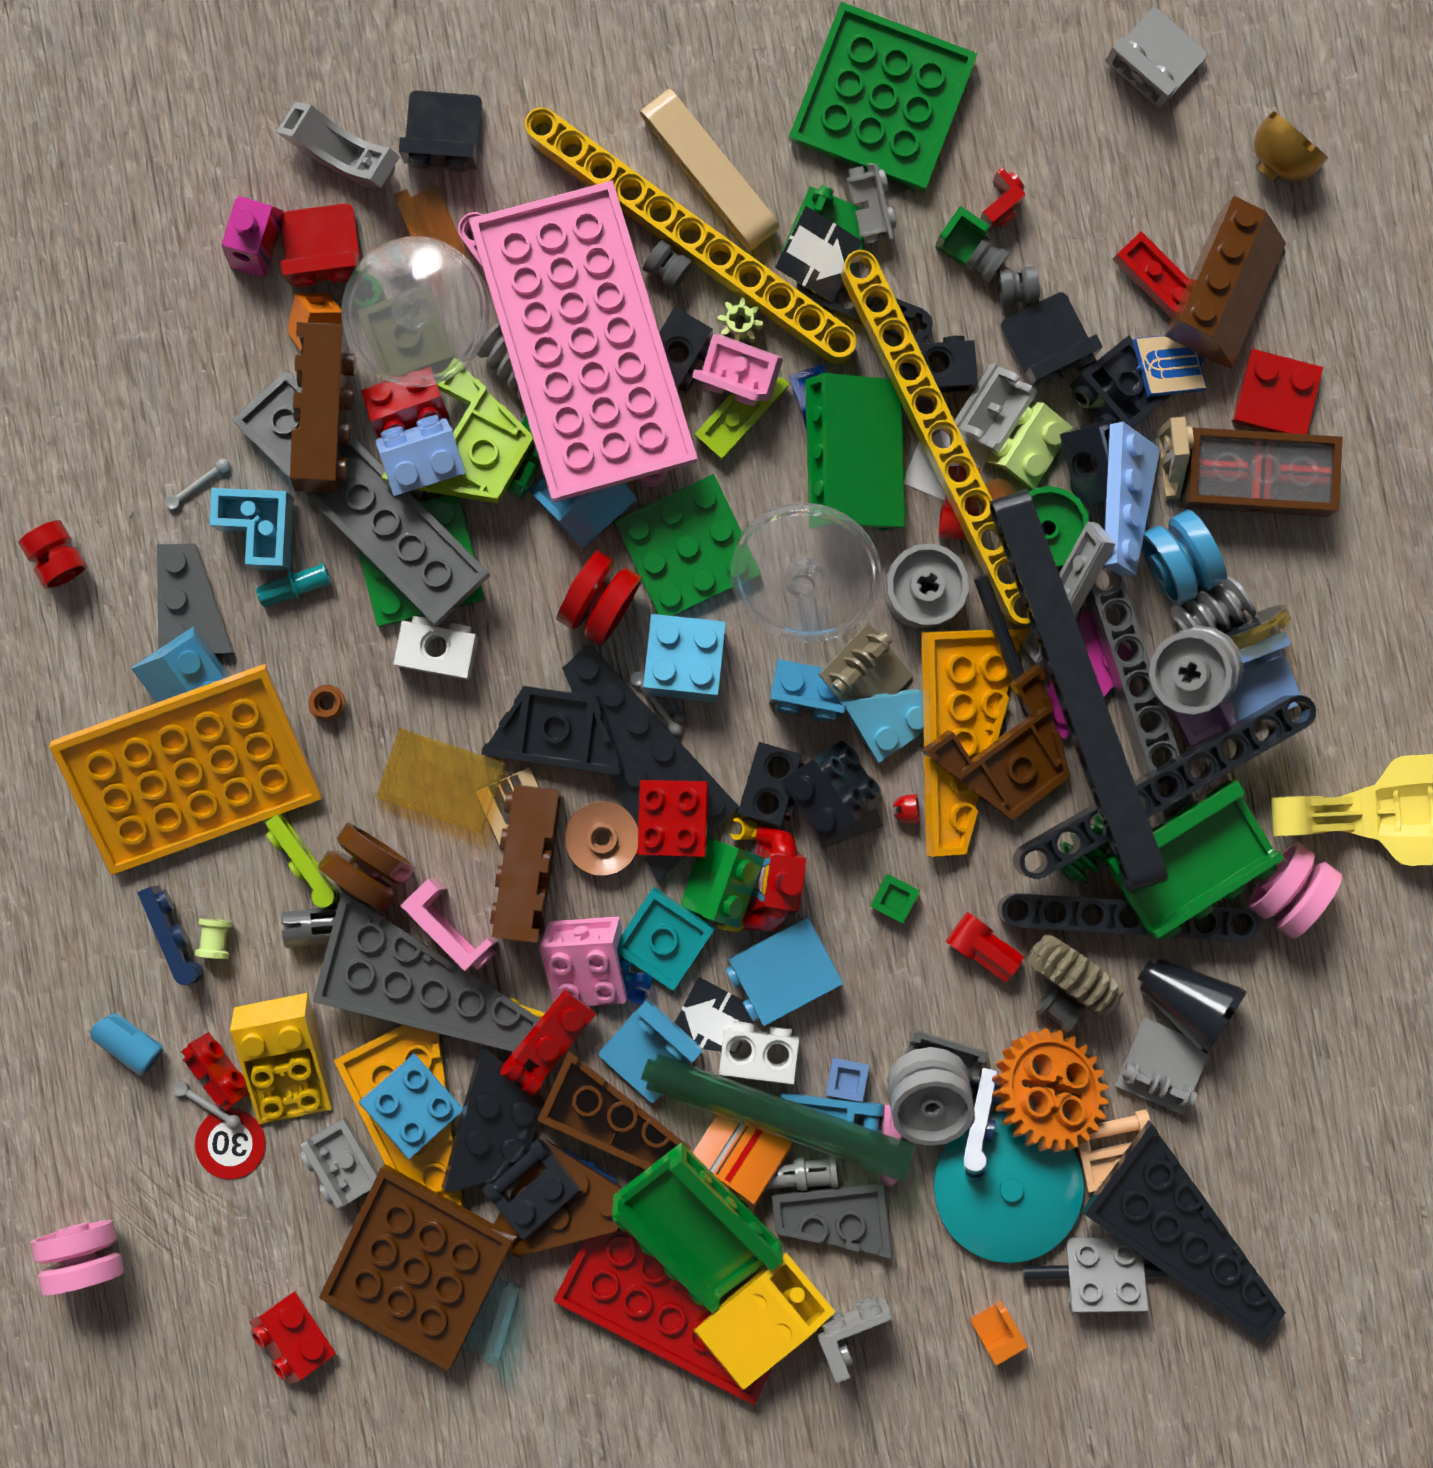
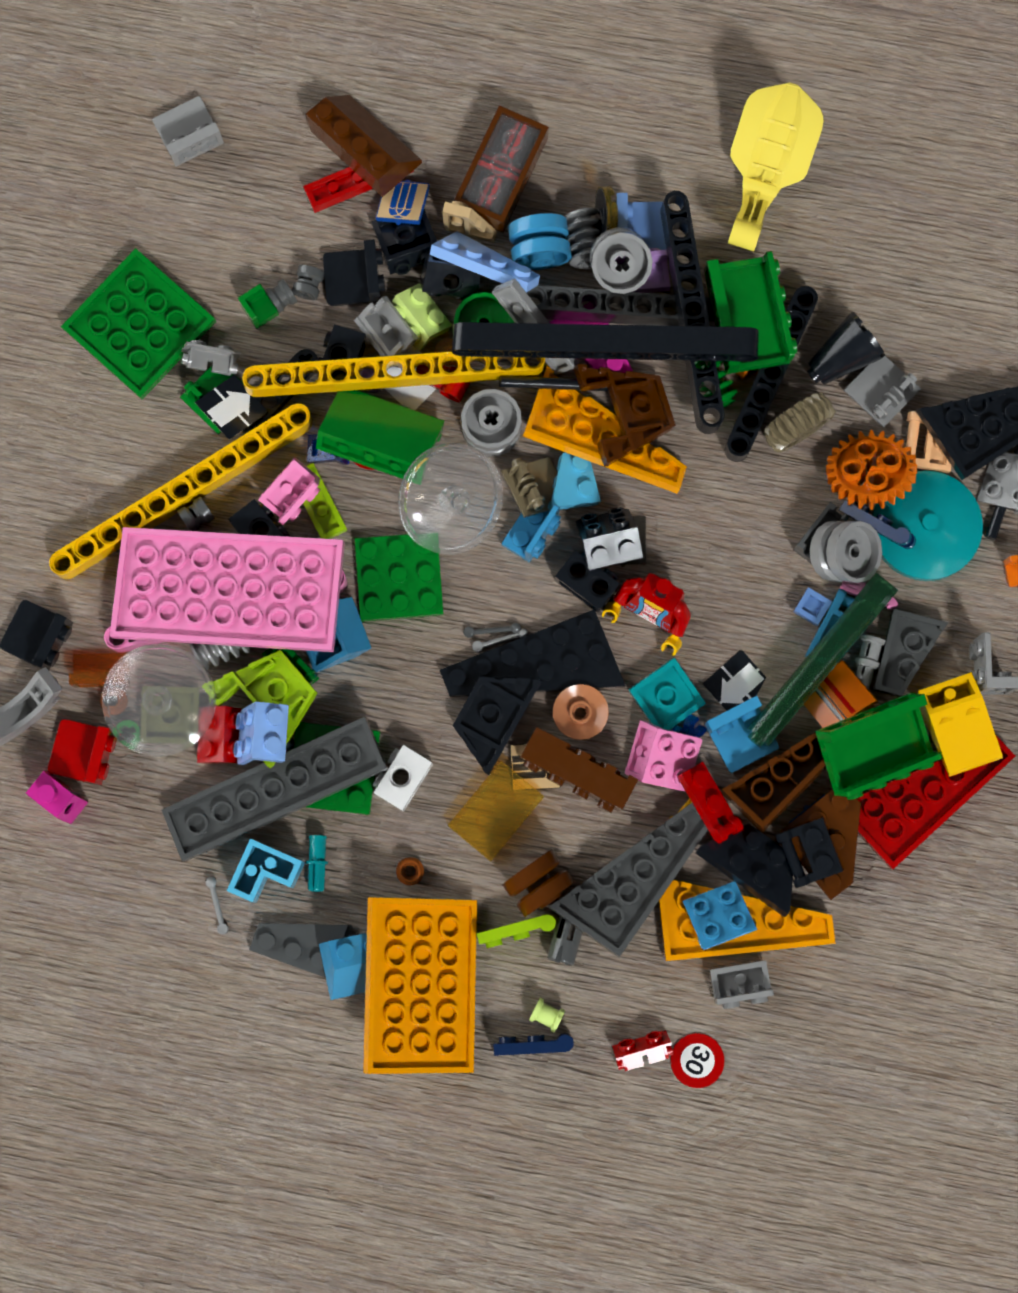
camera: 65 degrees left, 5 degrees down
(51, 552) = (227, 1027): red wheel -> none
(76, 1251) = (739, 1196): bright pink wheel -> none
(126, 1043) = (598, 1106): dark azure arm -> none
(182, 1088) = (645, 1080): light grey hinge -> none
(281, 1058) = (650, 998): yellow slope -> none
(291, 1339) = (853, 1067): red bracket -> none
(312, 309) = (135, 776): orange panel -> none
(321, 408) = (201, 791): reddish brown wedge -> none
(417, 1267) = (834, 955): reddish brown plate -> none
(447, 937) = (581, 856): bright pink panel -> none
(493, 1322) = (888, 919): clear light blue panel -> none
(594, 596) = (409, 650): red wheel -> none
(673, 818) = (586, 655): red hinge -> none
(684, 658) = (476, 606): medium azure brick -> none
(709, 169) = (140, 460): tan beam -> none
(722, 883) = (642, 639): green bracket -> none
(748, 326) = (255, 473): yellowish green gear -> none
(757, 1064) = (778, 663): white brick -> none
(783, 972) = (722, 621): dark azure panel -> none
(894, 898) = (698, 526): green plate -> none
(910, 809) = (640, 492): red hinge -> none
(978, 942) = (751, 481): red piece -> none
(1003, 209) = (242, 261): red bracket -> none
(1060, 1009) = (817, 443): dark grey bush -> none
(1277, 393) = (450, 139): red plate -> none
(1285, 151) = (287, 69): pearl gold cylinder -> none
(1295, 891) = (797, 253): bright pink wheel -> none

